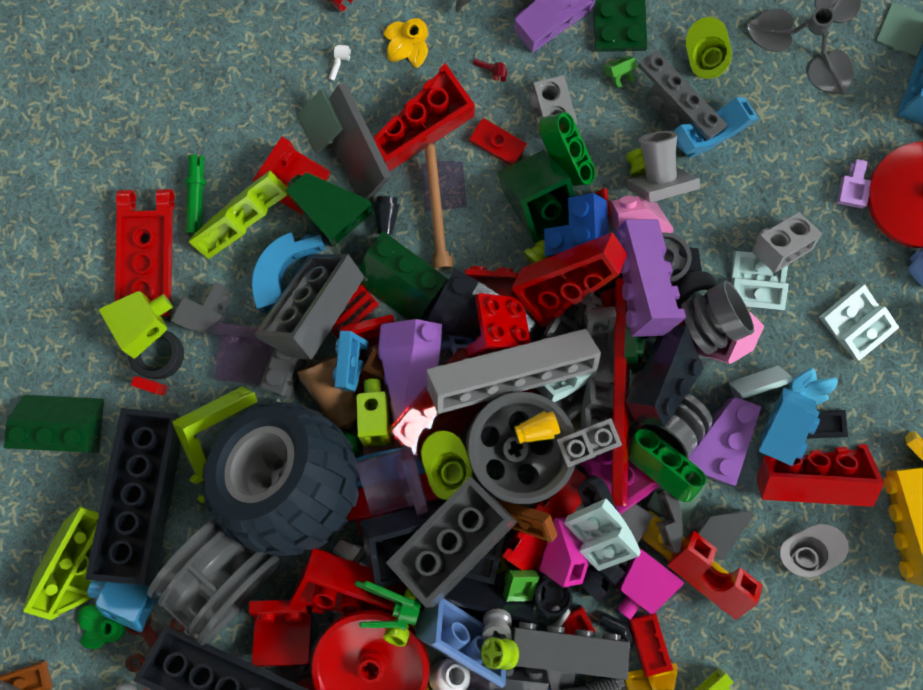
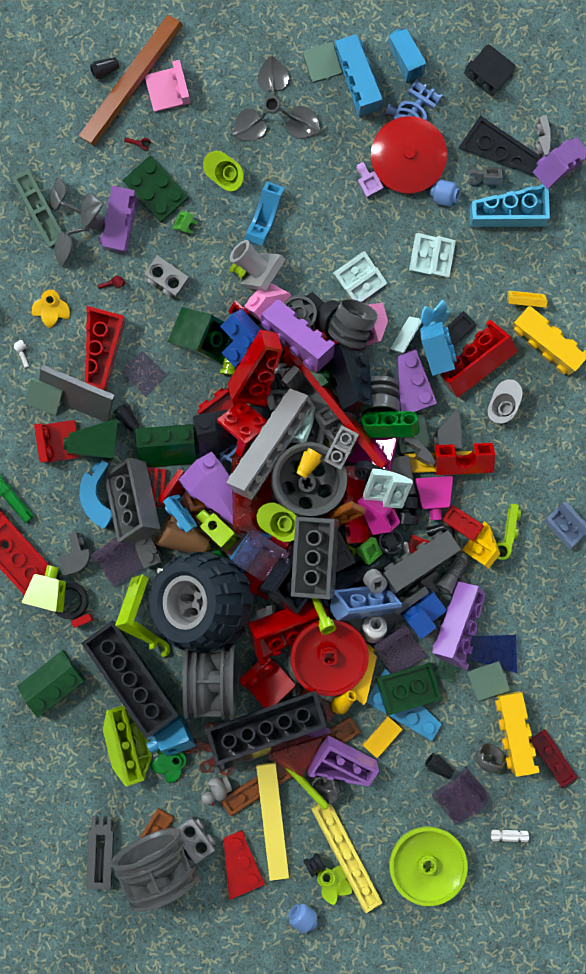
camera: 45 degrees left, 5 degrees up
(238, 215) = (47, 487): lime slope -> none
(404, 608) = (319, 609): green plant -> none
(440, 256) = (178, 414): medium nougat piece -> none
(498, 142) = (152, 322): red plate -> none
(499, 653) = (386, 590): lime wheel -> none
(567, 147) = (195, 297): green beam -> none
(676, 99) = (231, 214): dark grey bracket -> none
(786, 242) = (360, 246): light grey brick -> none

